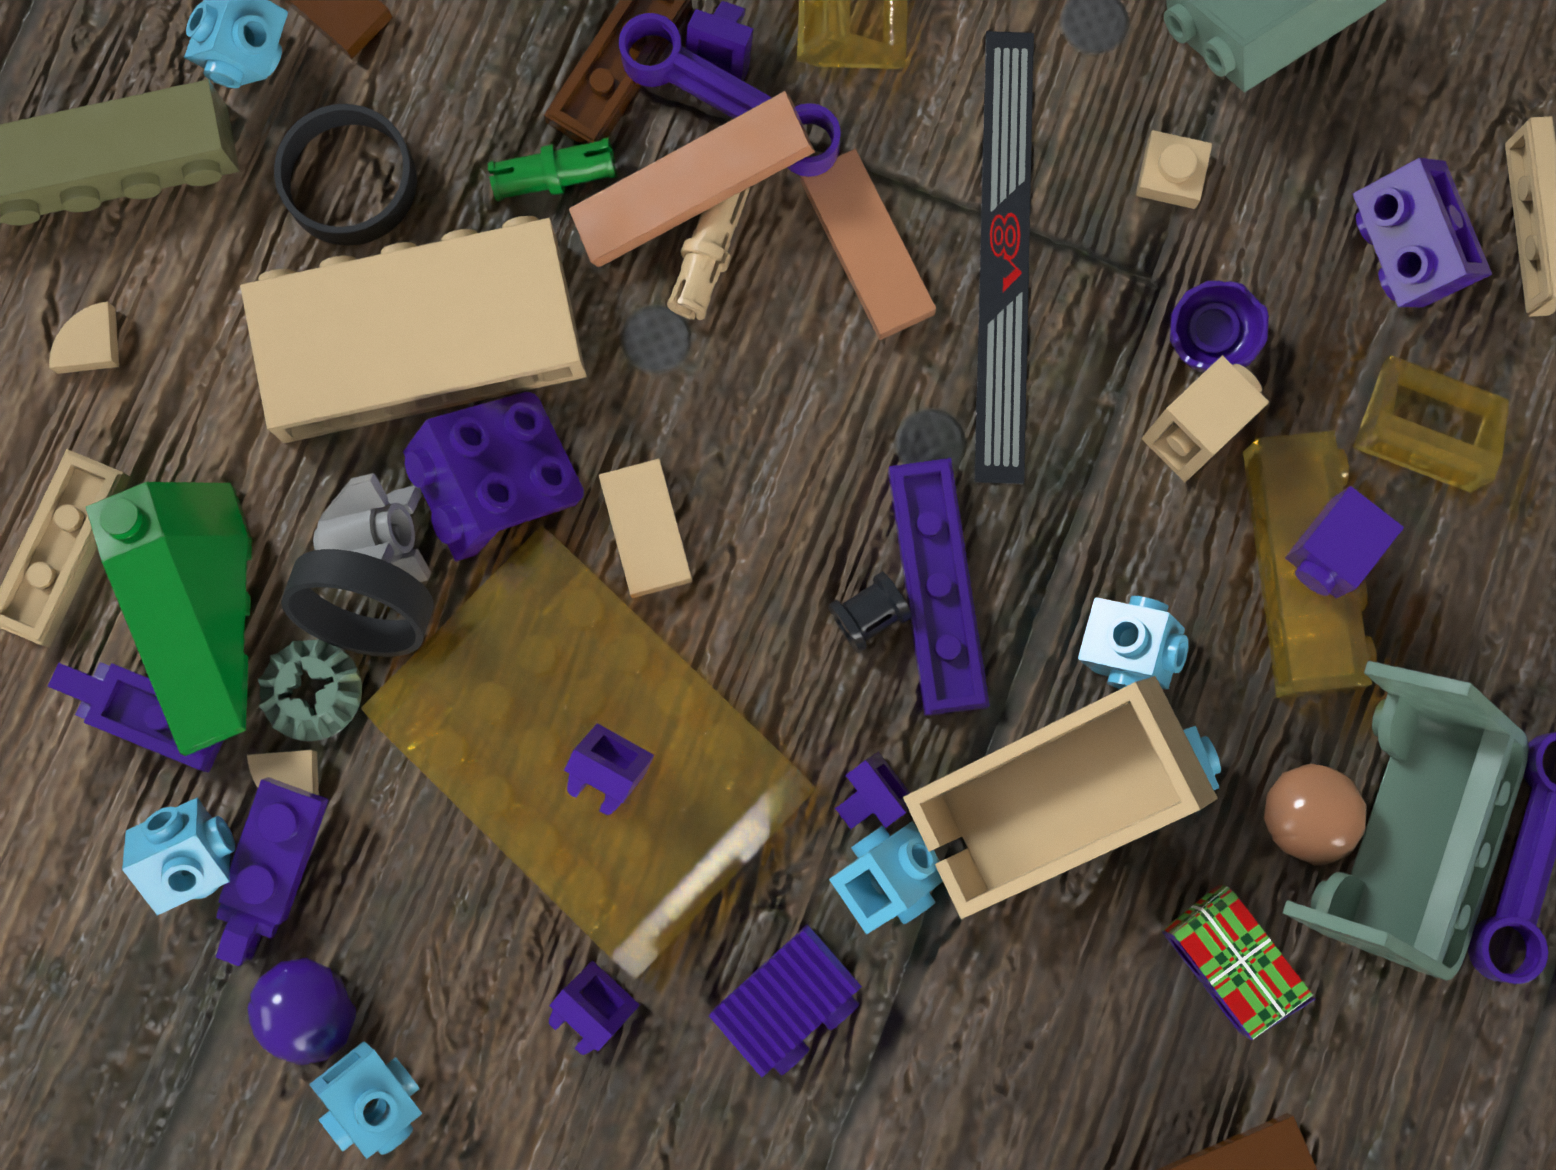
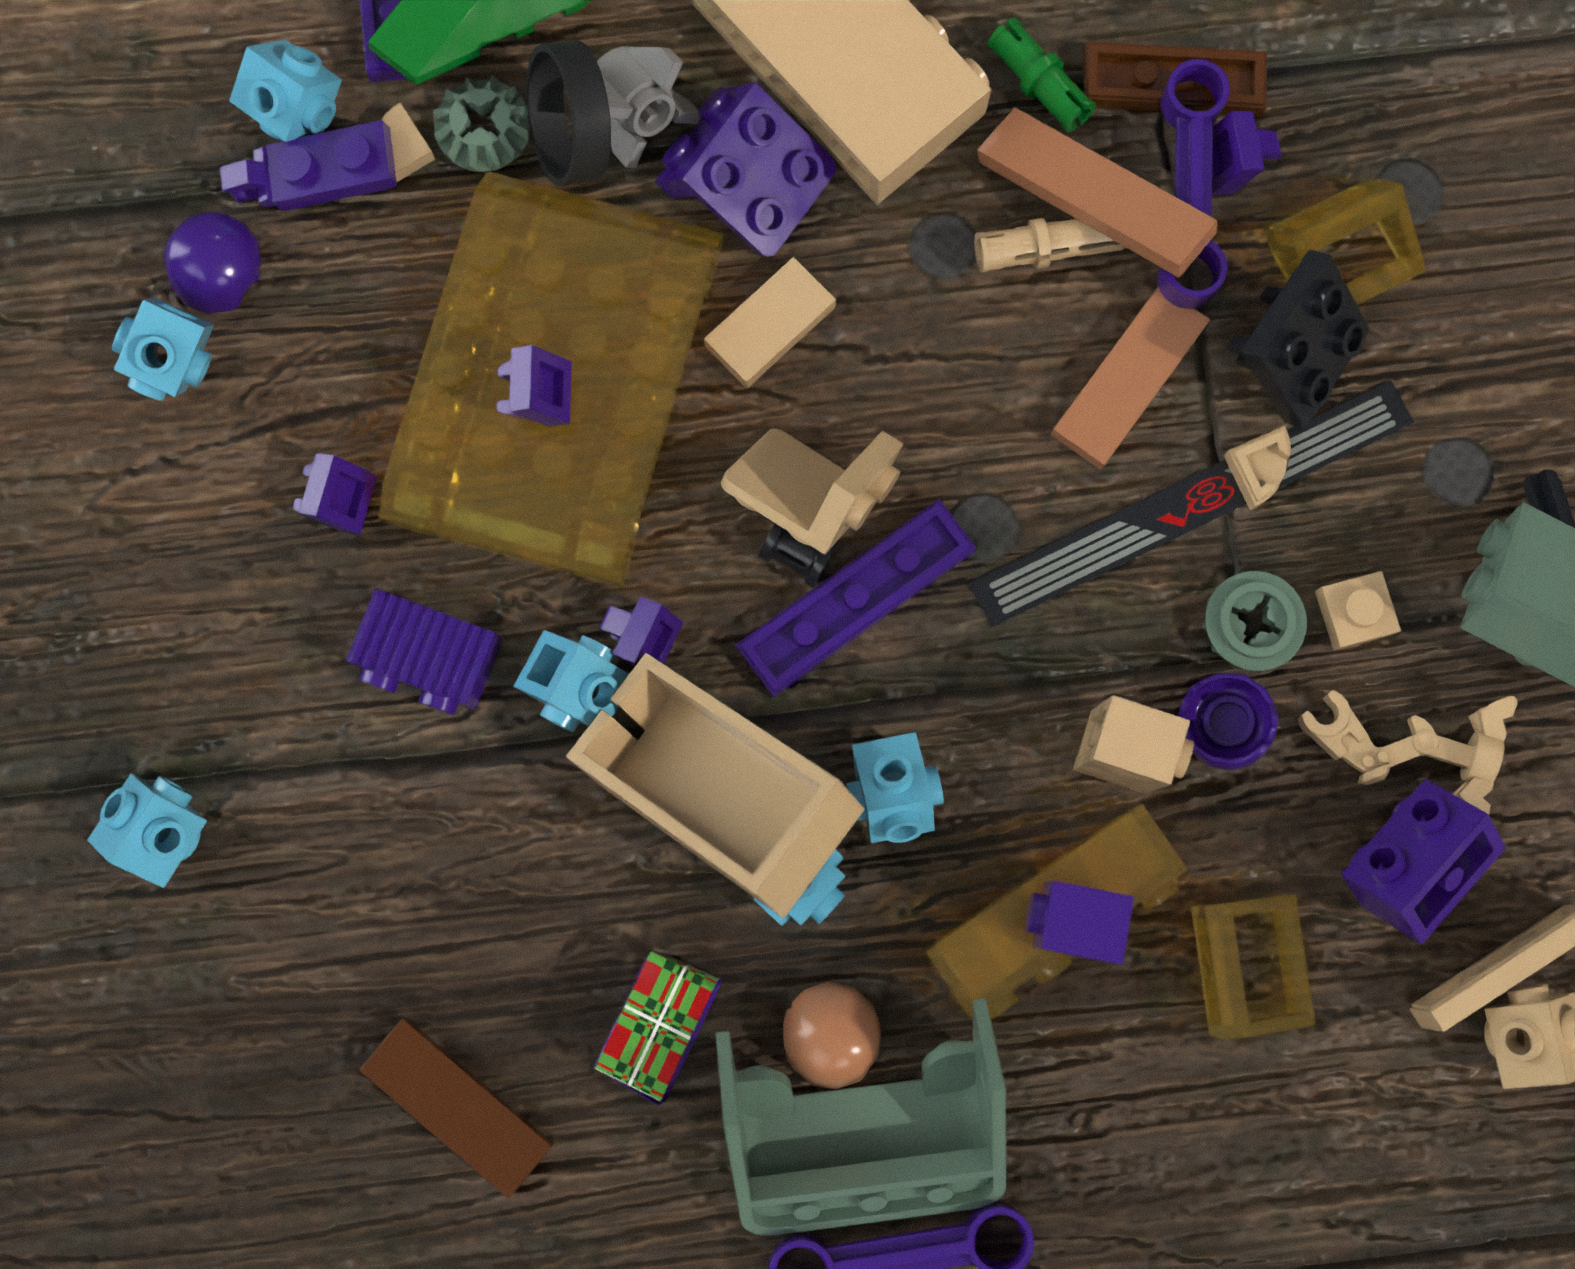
camera: 60 degrees right, 0 degrees up
(829, 573) = (808, 491): none -> tan bracket
(923, 78) = (1304, 339): none -> black plate
(1006, 179) = (1260, 465): none -> tan tile
(1141, 232) = (1282, 612): none -> sand green gear
(1355, 142) = (1478, 759): none -> tan piece

